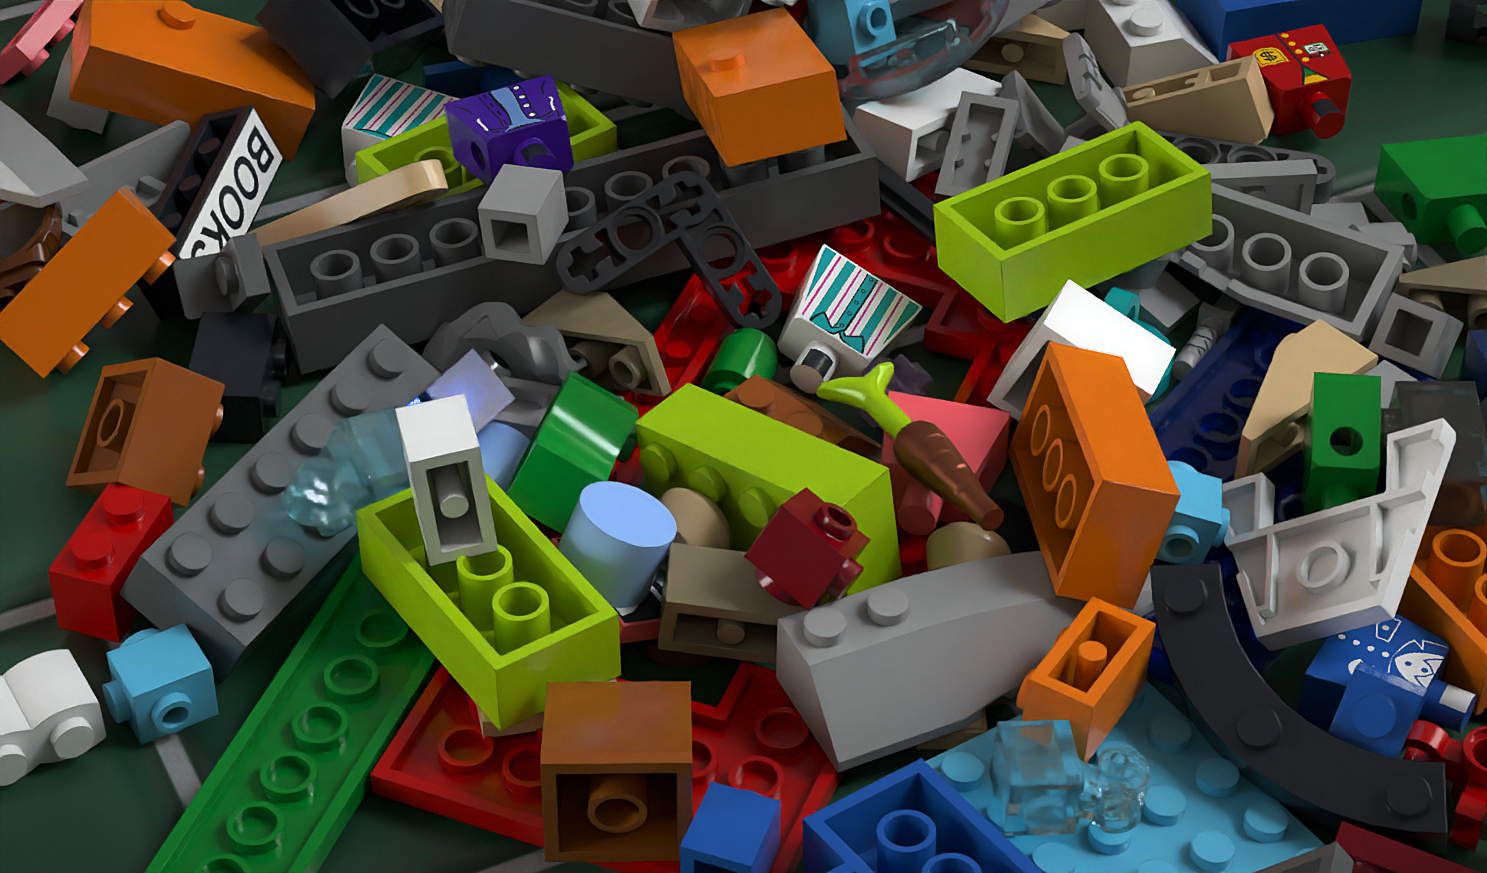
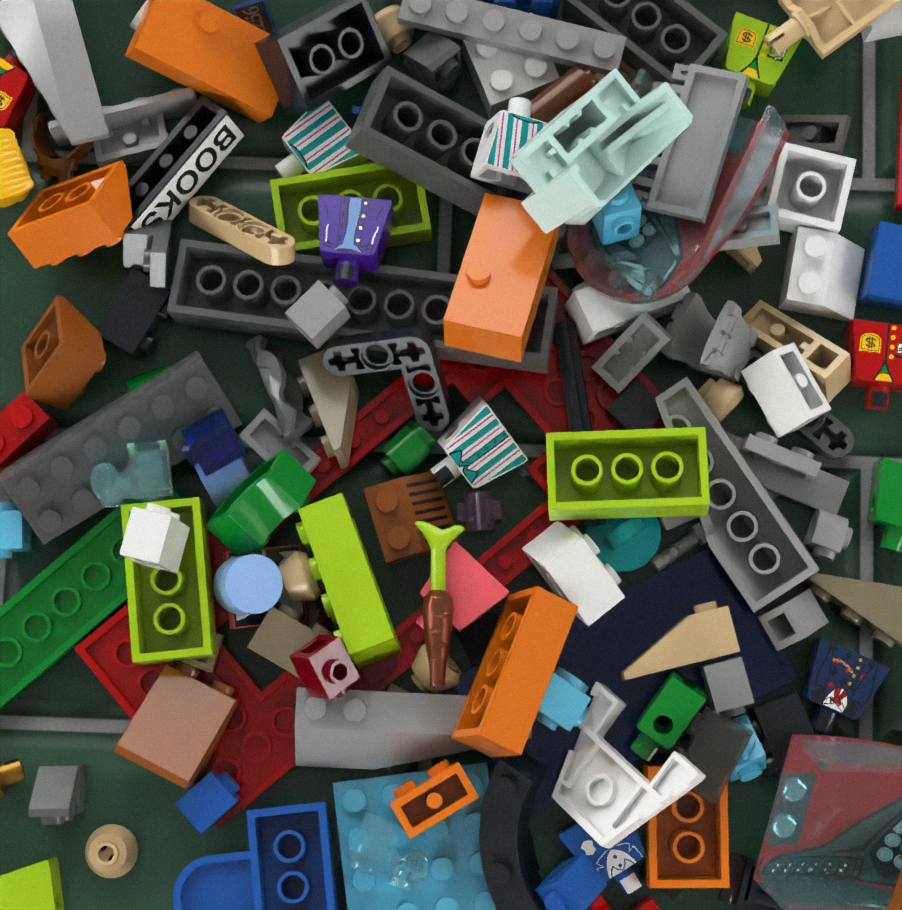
camera: 30 degrees right, 40 degrees up
(1205, 116) = (785, 390): none -> white brick

